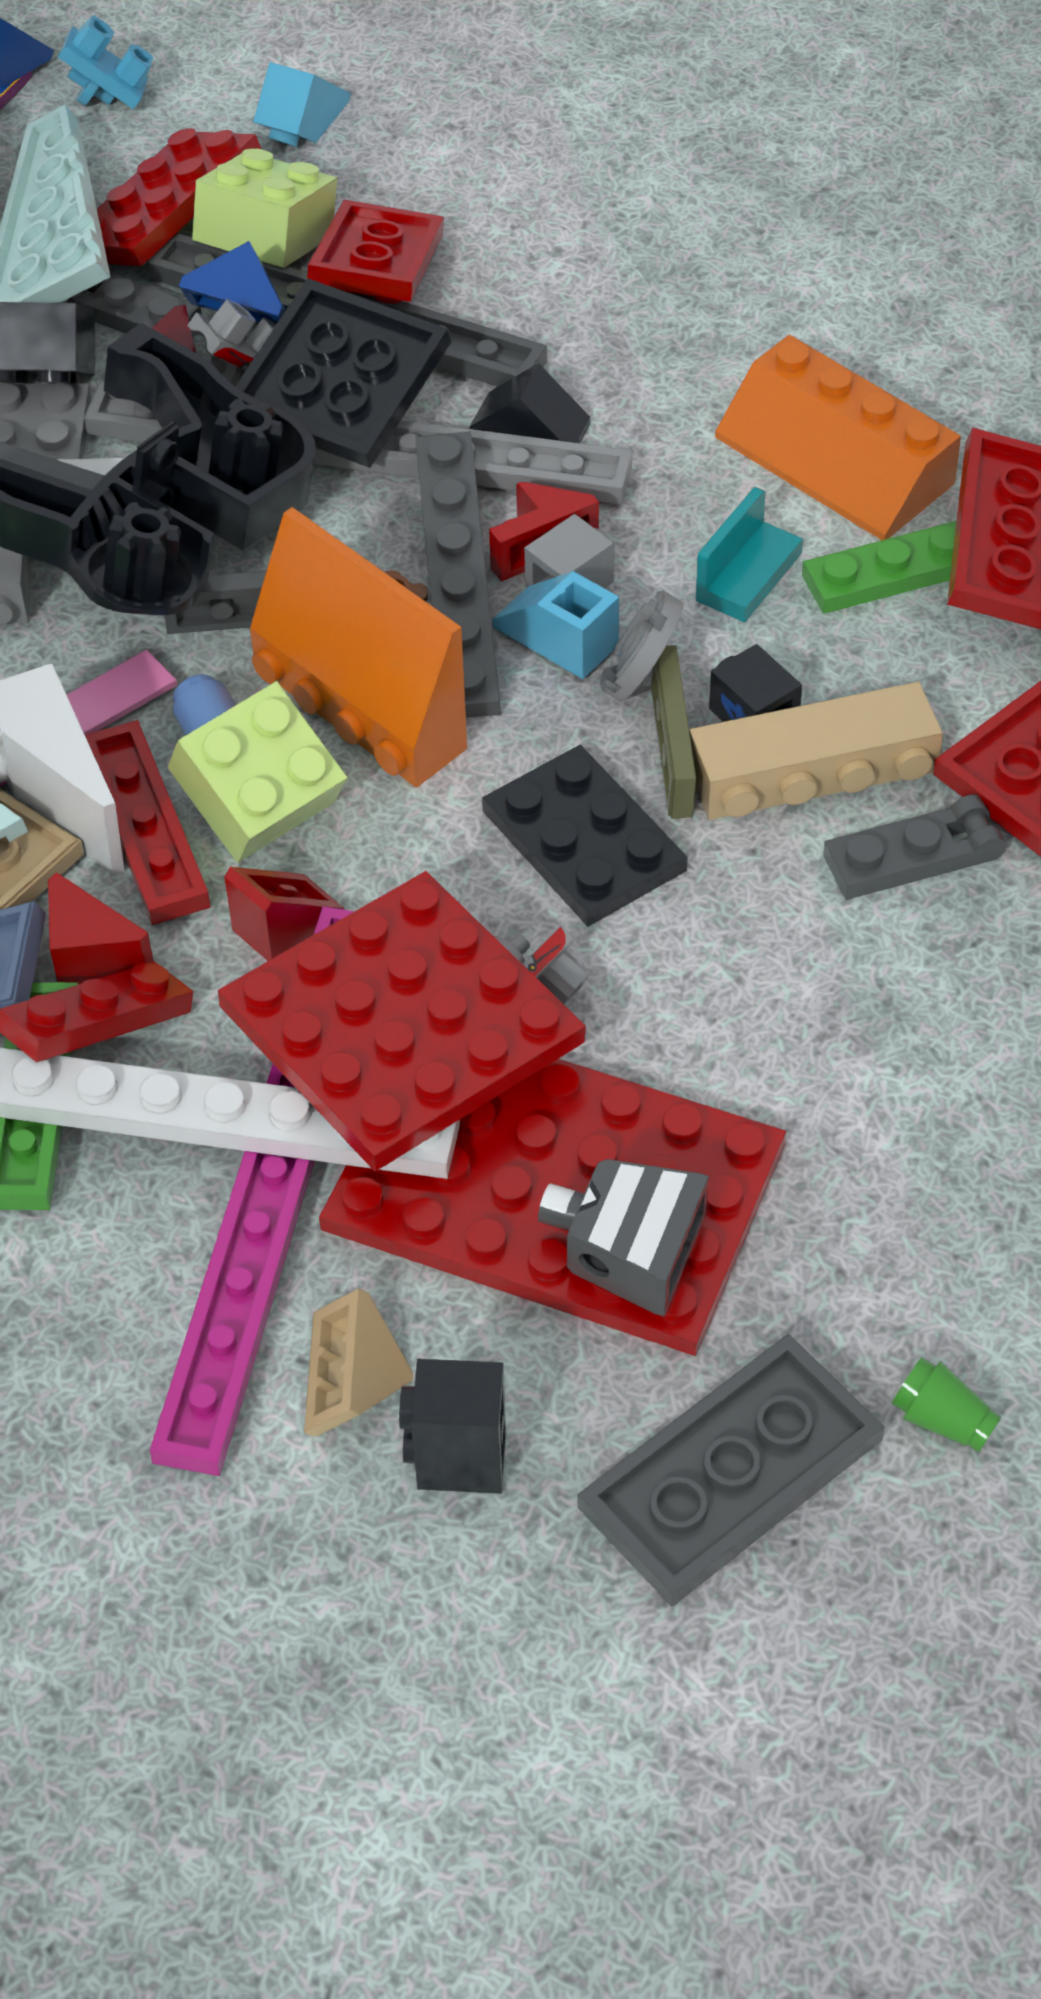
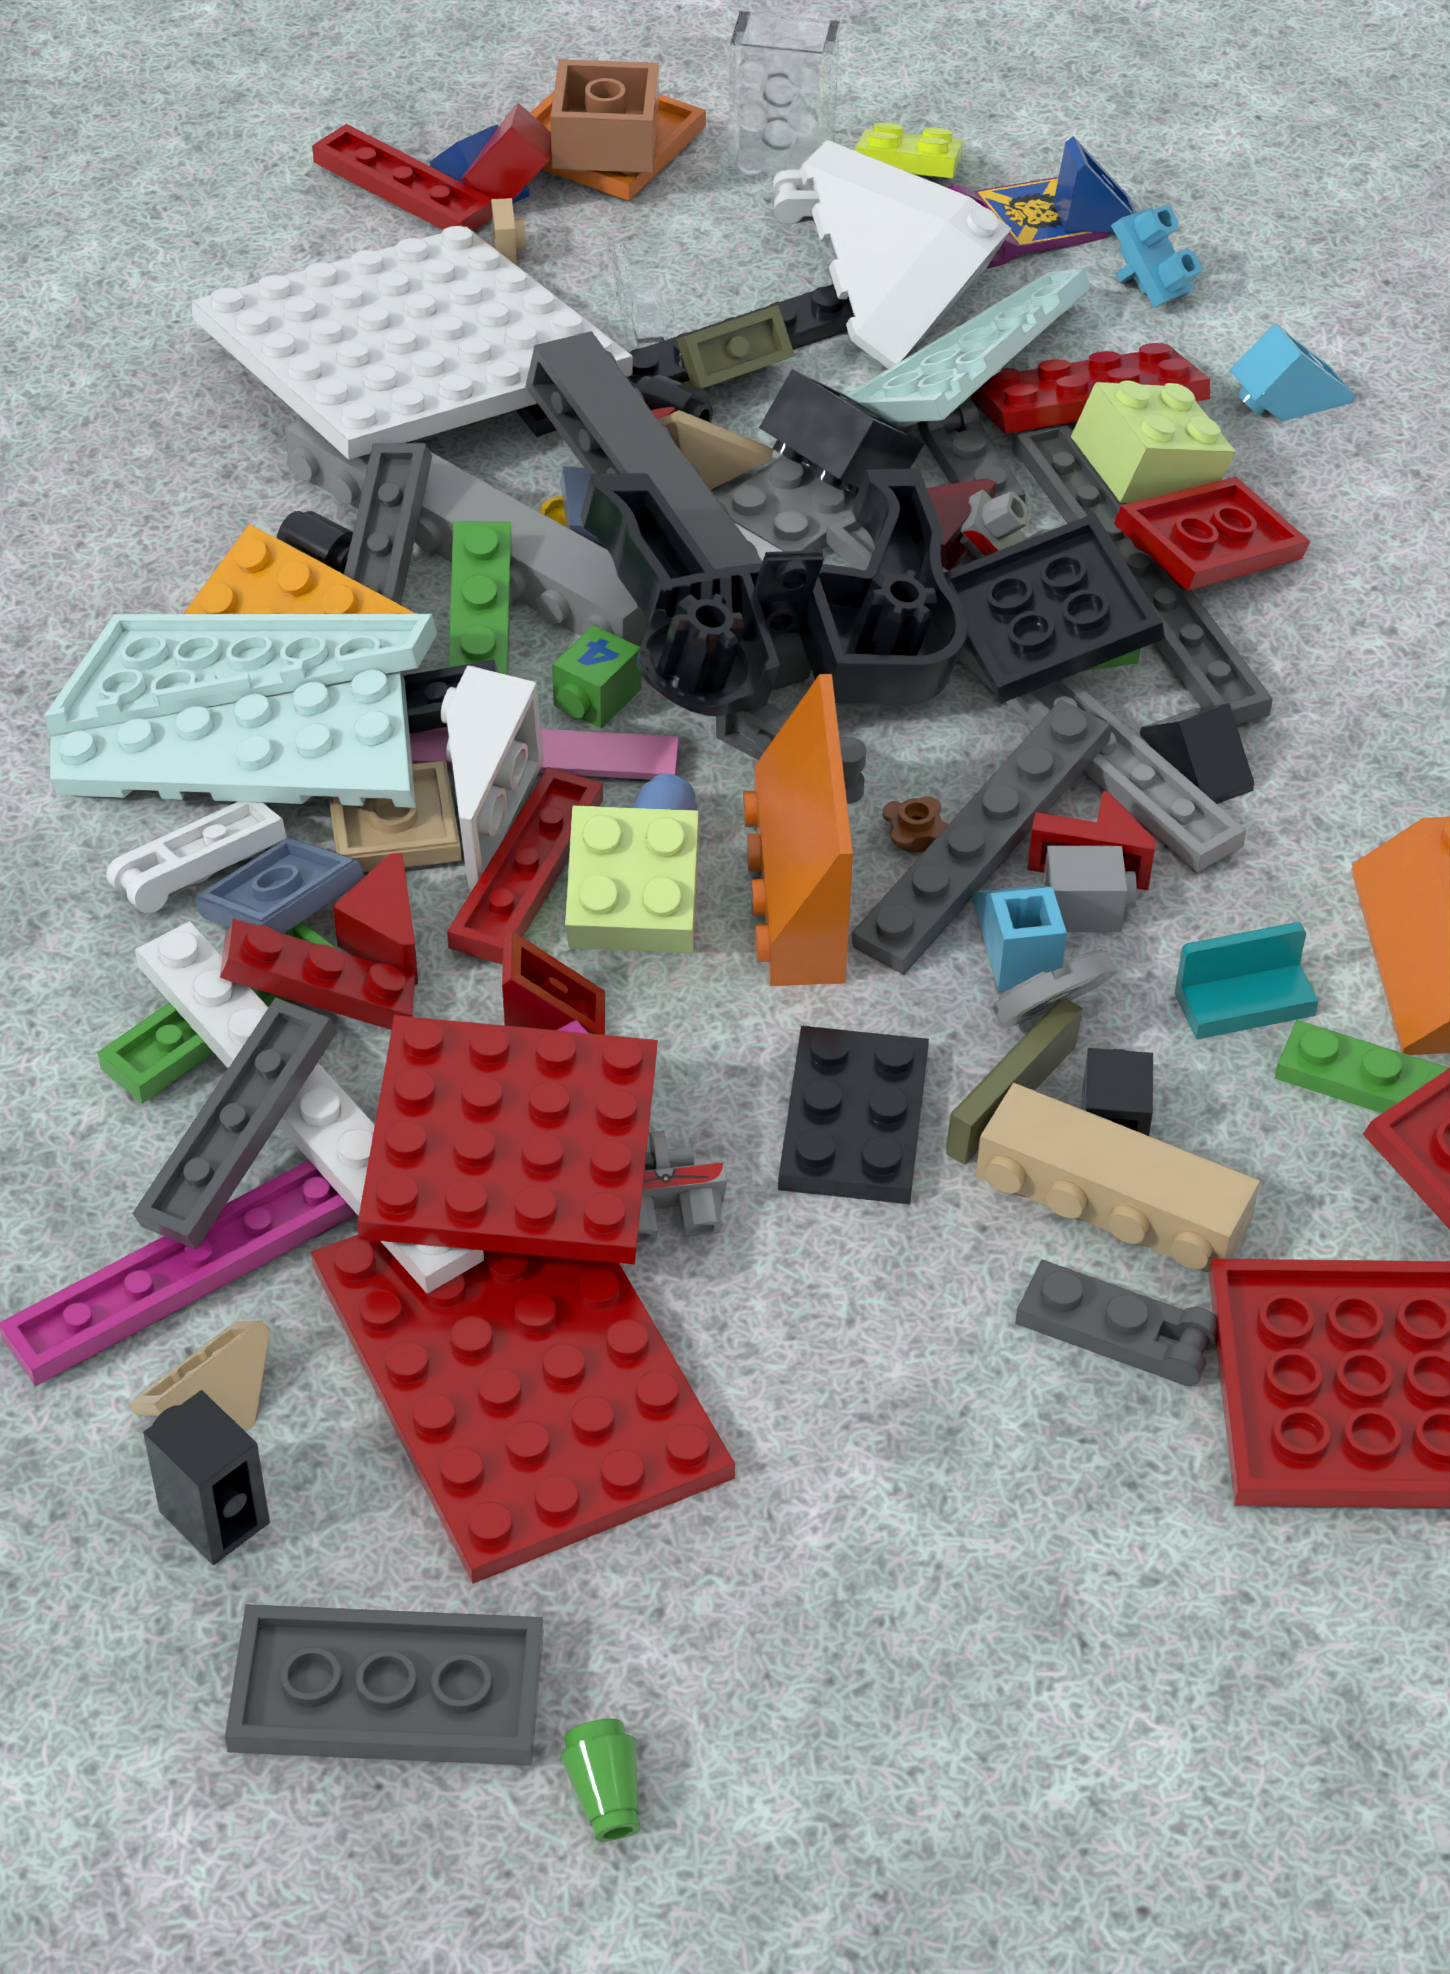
camera: 40 degrees right, 5 degrees down
(36, 636) = (596, 677): none -> bright green brick
(183, 1159) = (235, 1123): none -> dark grey plate
(234, 277) = (1053, 485): blue slope -> none
(630, 1228) = (503, 1434): dark grey torso -> none

